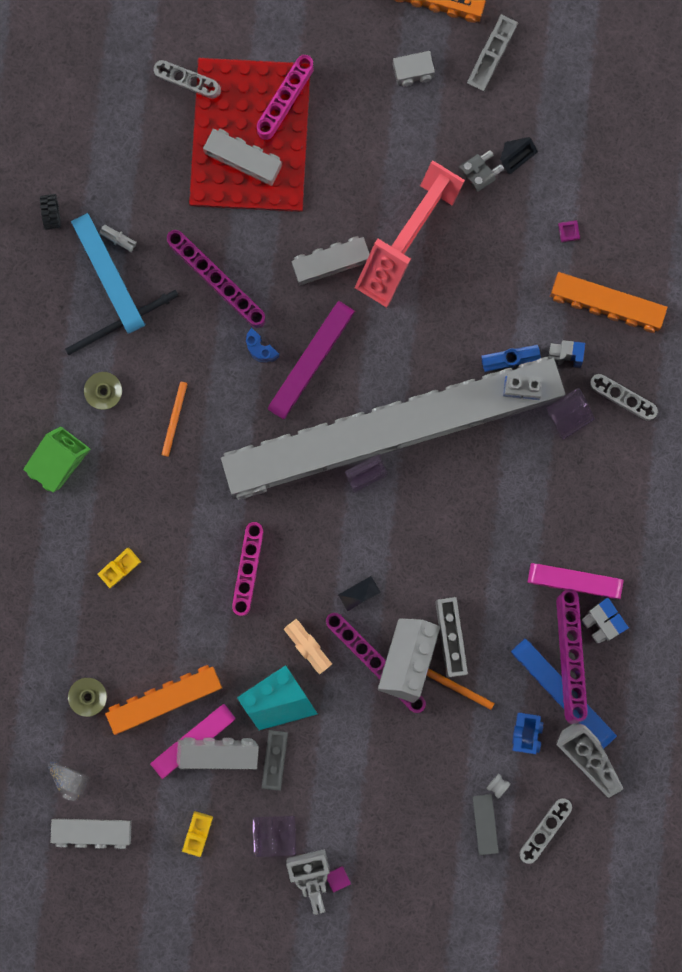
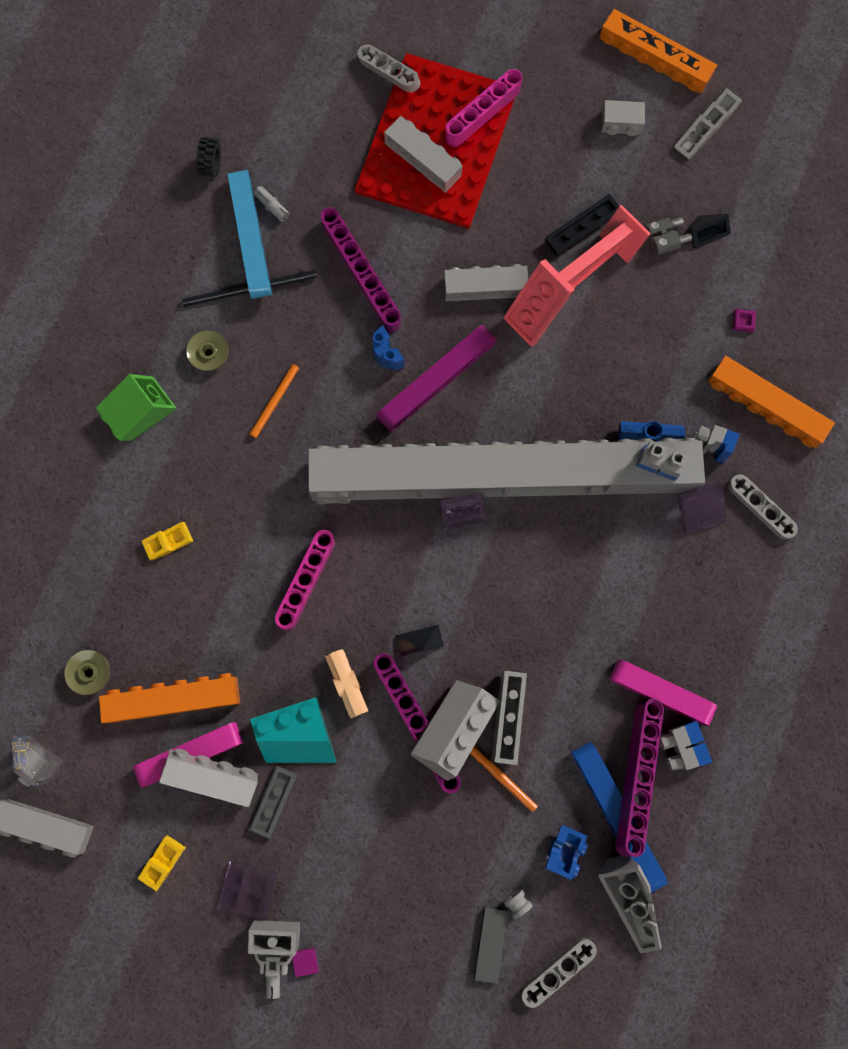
camera: 10 degrees right, 5 degrees down
(403, 181) = (582, 225): none -> black plate

